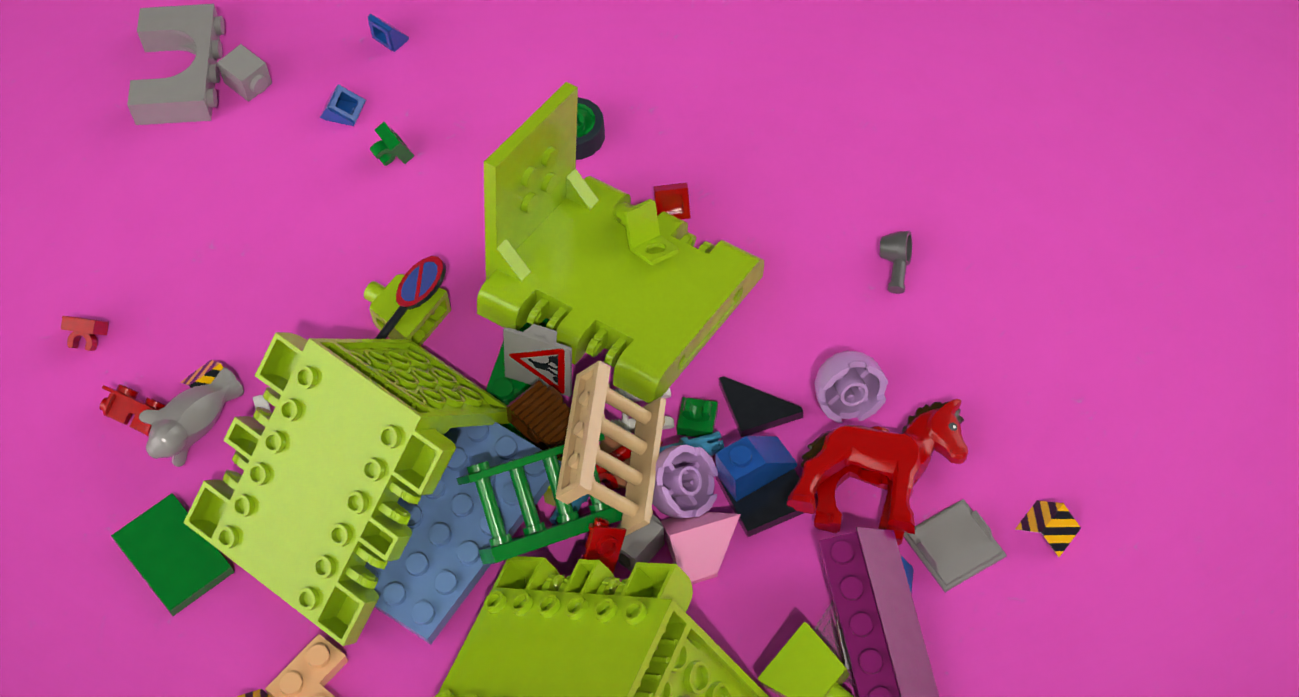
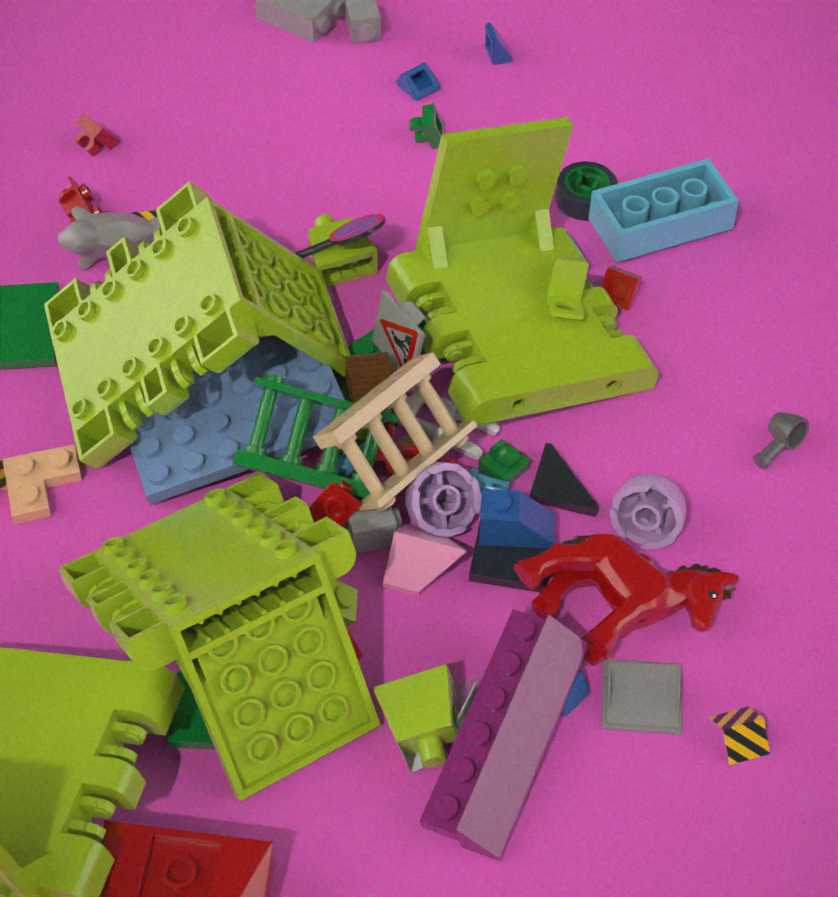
camera: 30 degrees right, 5 degrees down
(655, 111) = (662, 210): none -> medium azure brick

